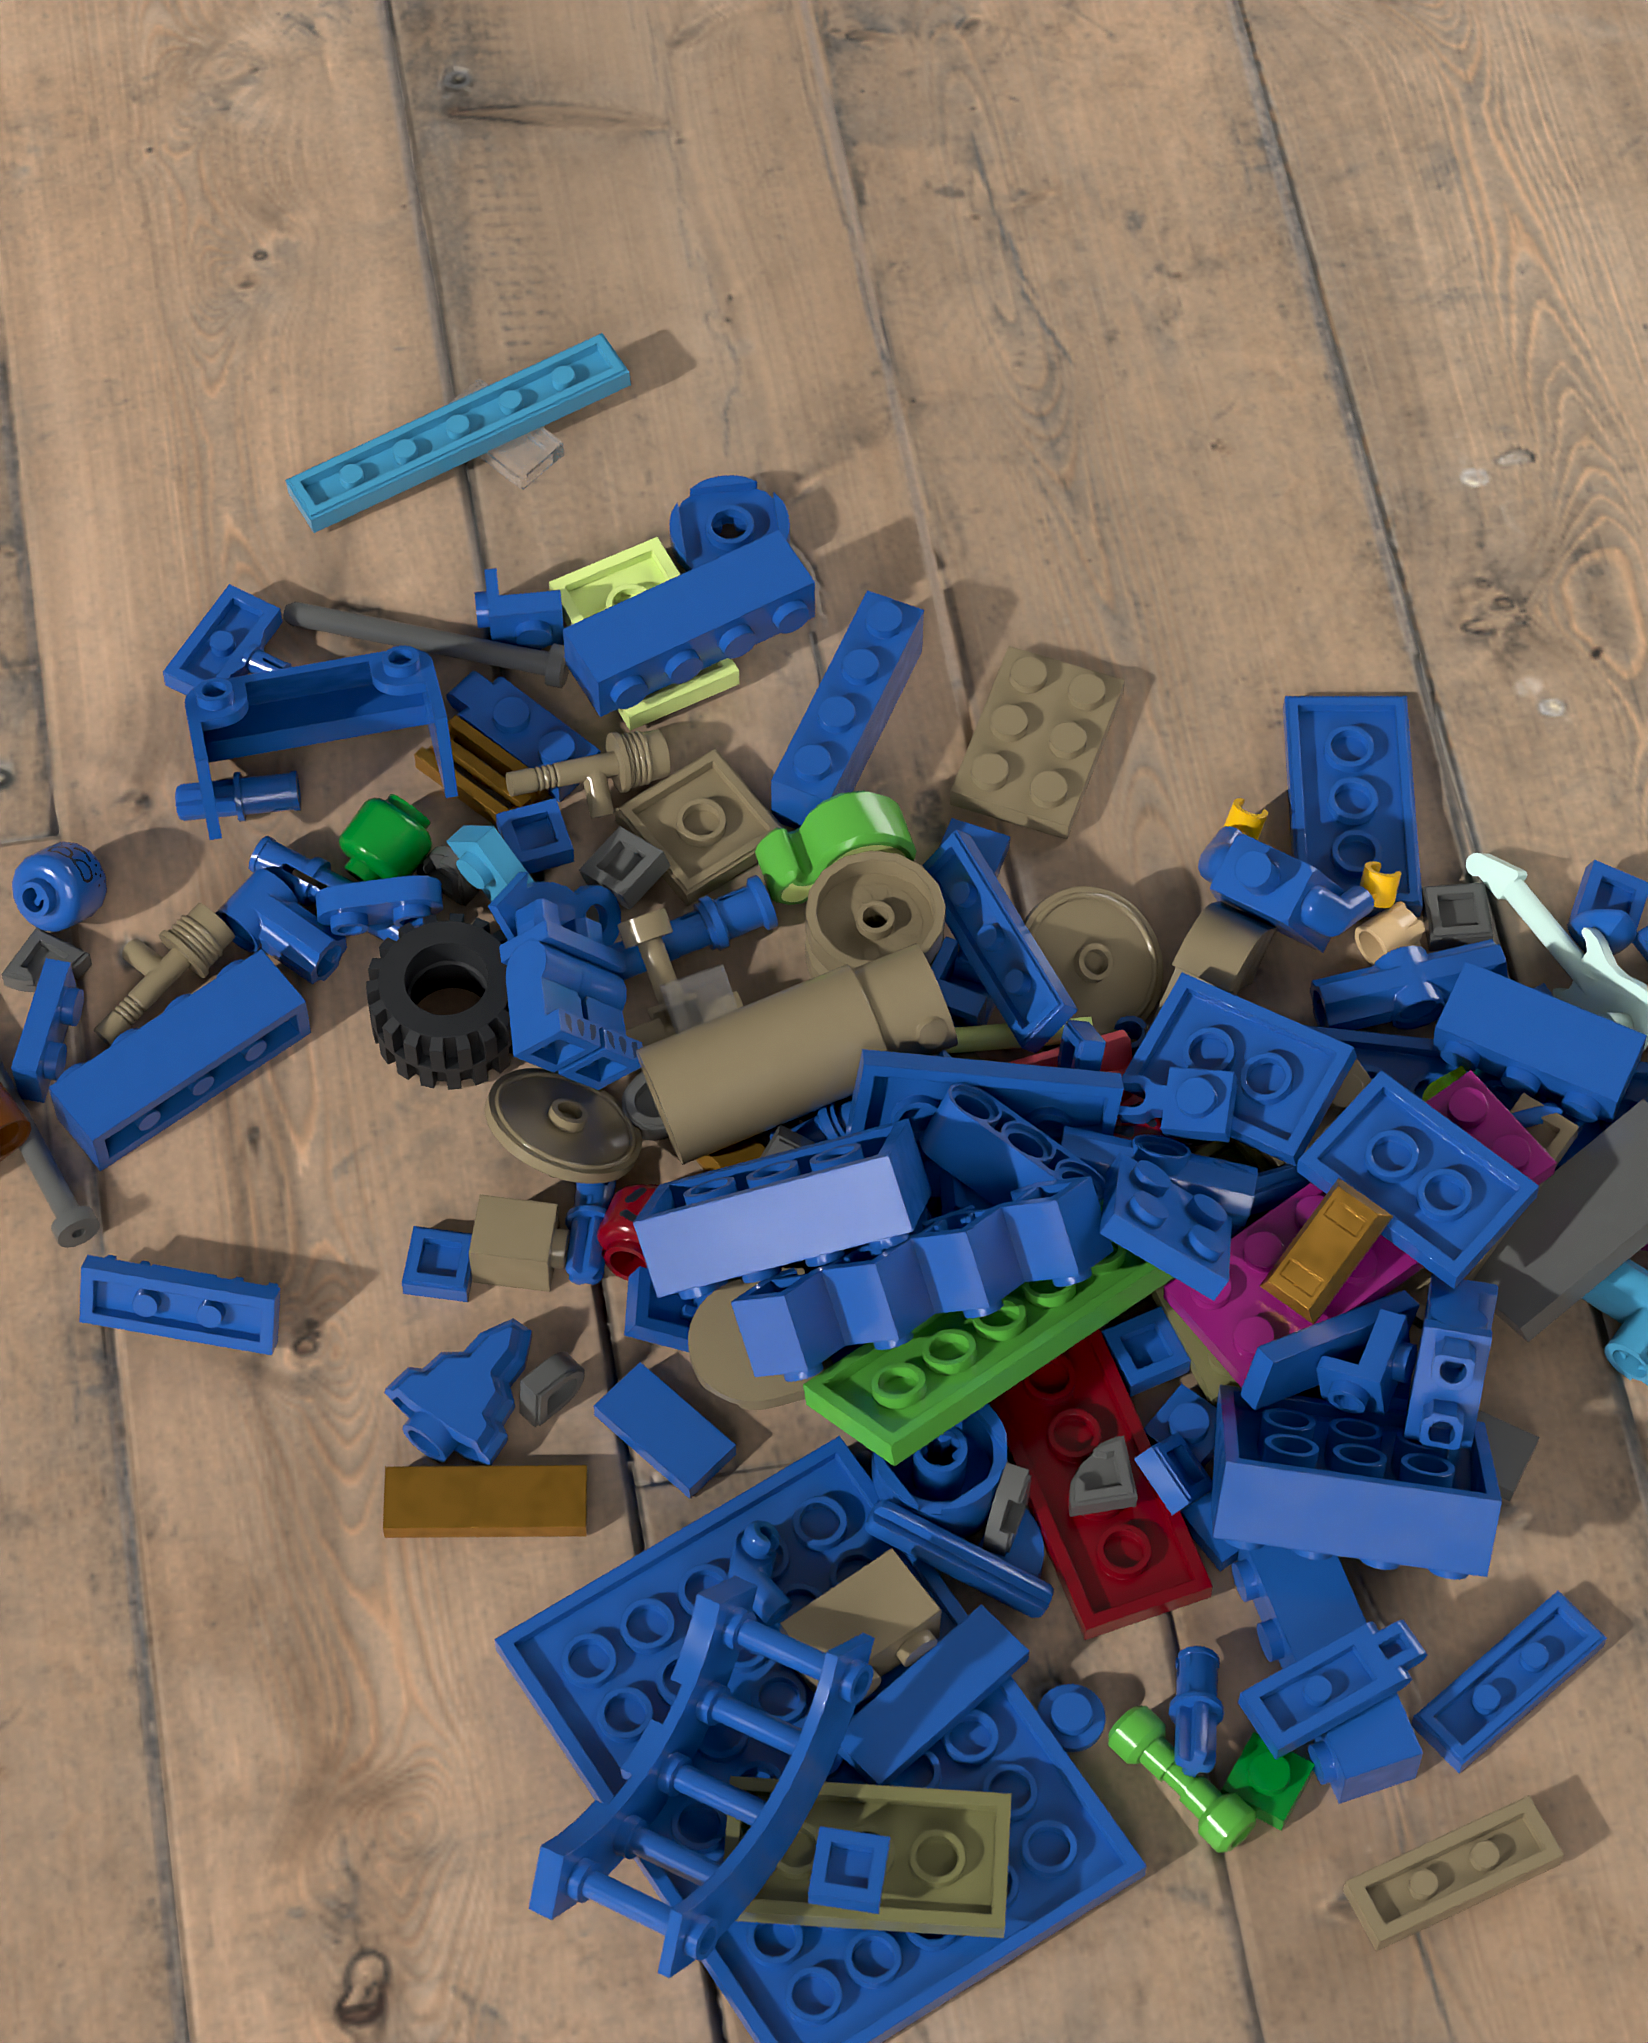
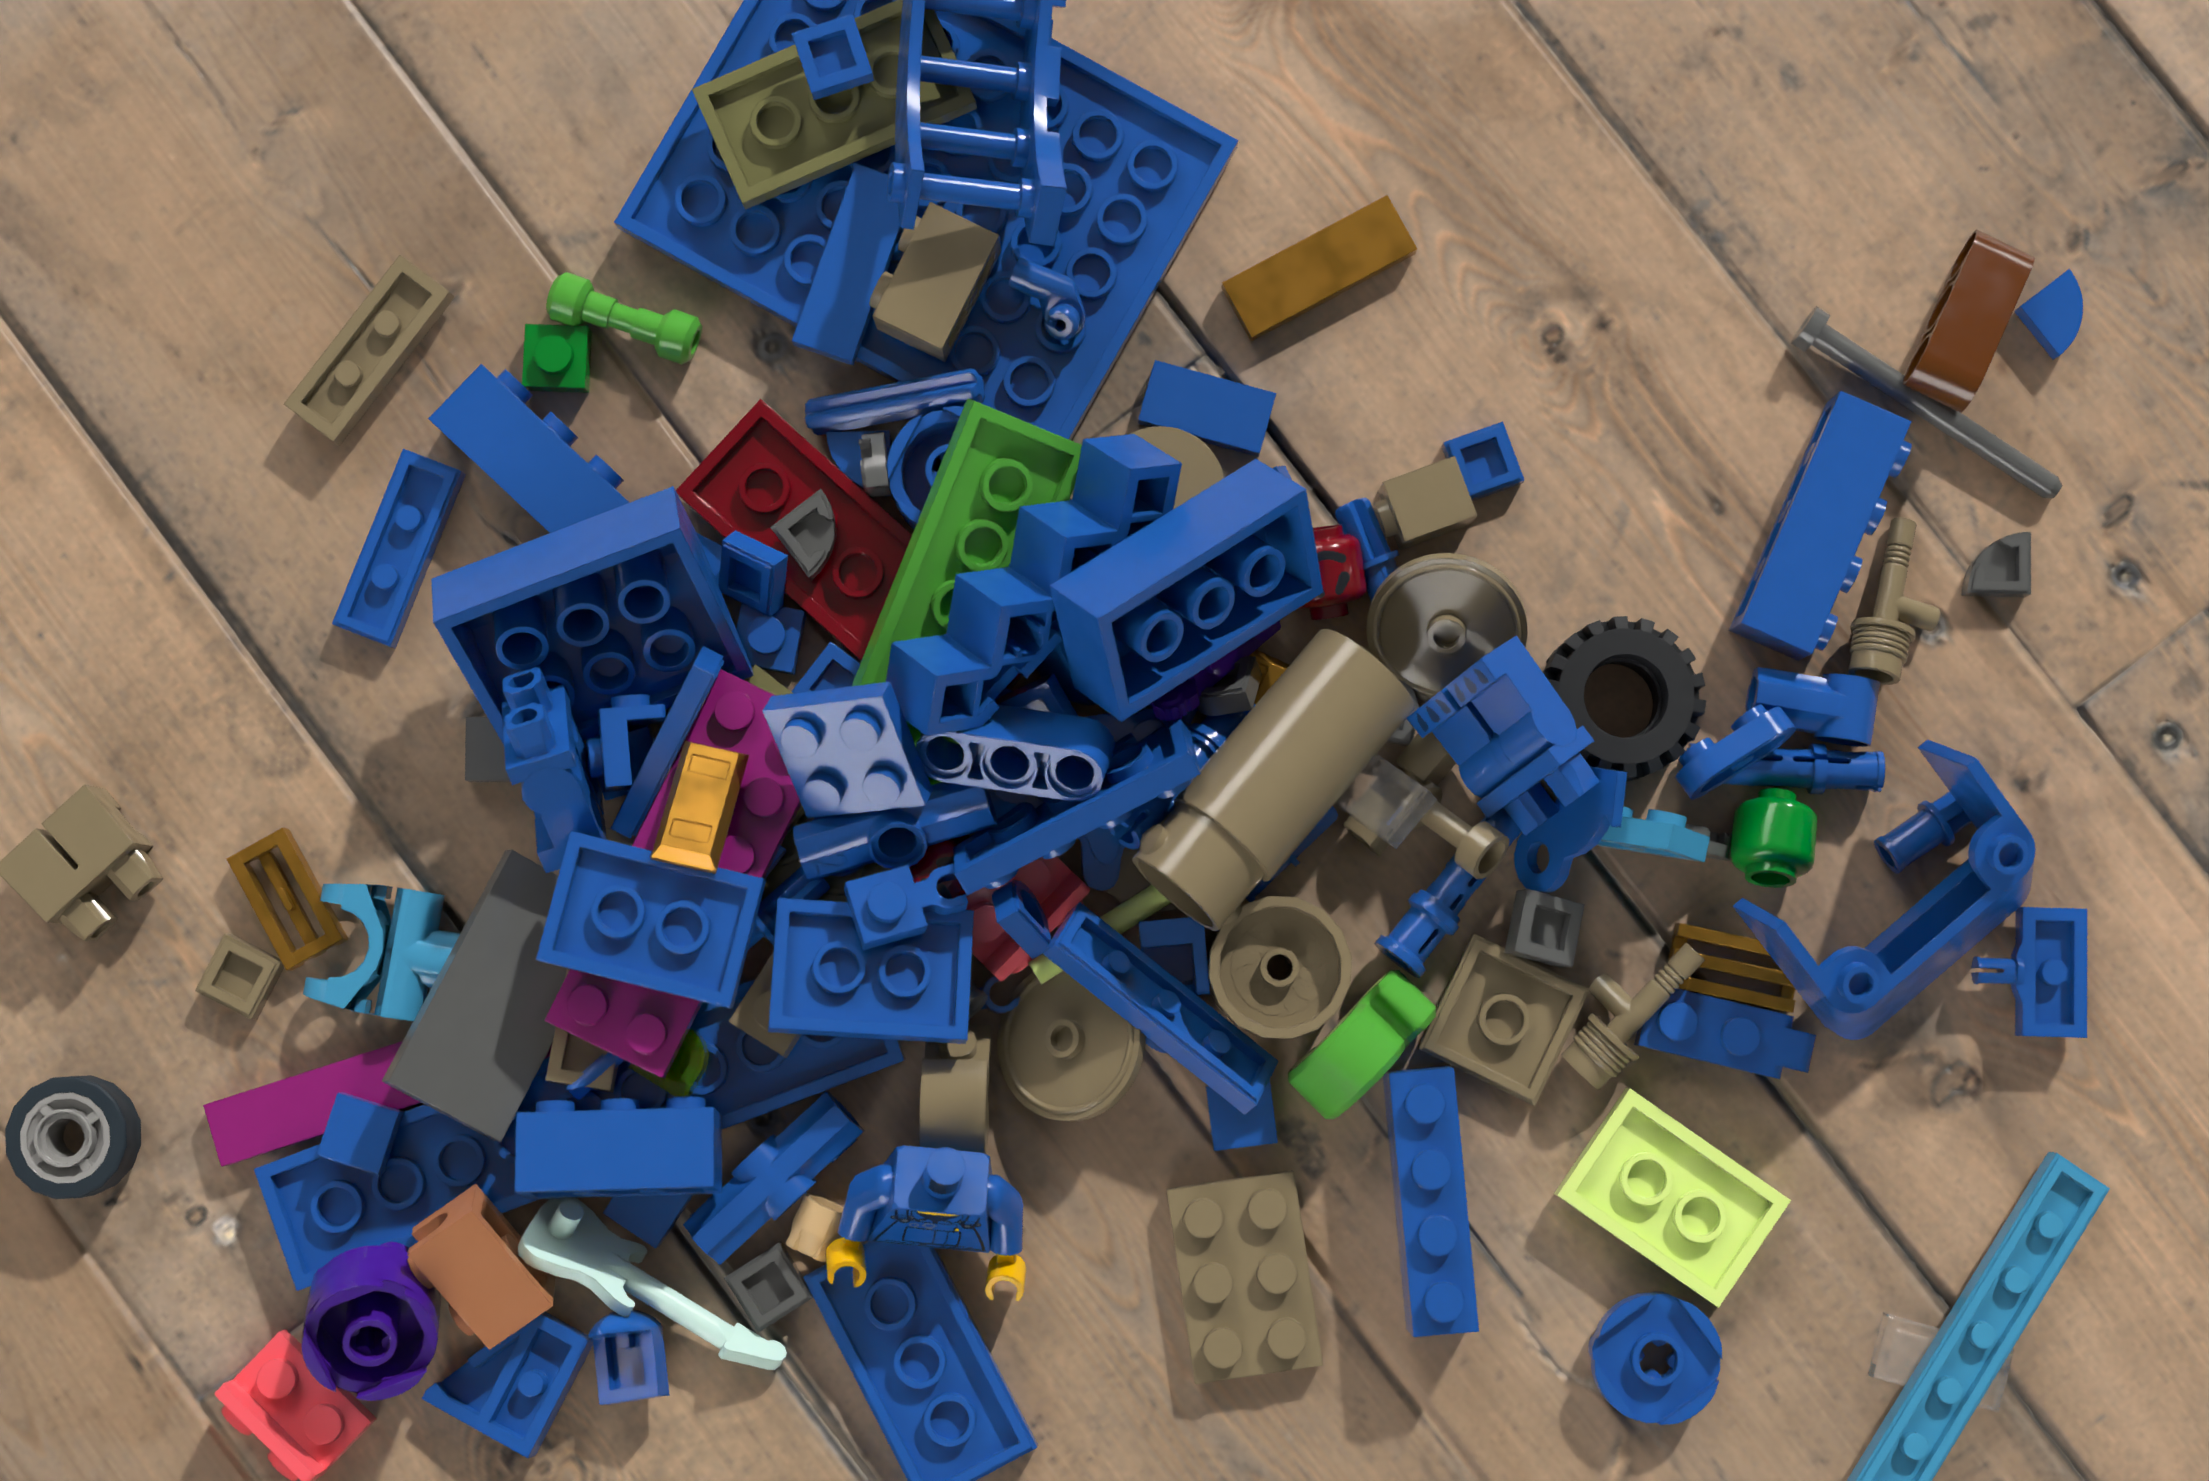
camera: 155 degrees right, 25 degrees up
(41, 1047) = (1960, 514): blue plate -> none
(59, 886) = (2033, 632): blue head -> none
(179, 1304) = (1677, 302): blue plate -> none
(433, 641) = (1737, 1117): dark grey bar -> none
(464, 1396) = (1388, 345): blue rock -> none
(520, 619) = (1785, 1146): blue bracket -> none
(537, 835) = (1640, 909): blue tile -> none
(549, 1387) = (1320, 389): dark grey tile -> none
(689, 623) = (1625, 1205): blue brick -> none
(1073, 1716) = (739, 326): blue plate -> none
(1196, 1710) = (636, 373): blue axle -> none
(1331, 1685) = (521, 425): blue hinge -> none

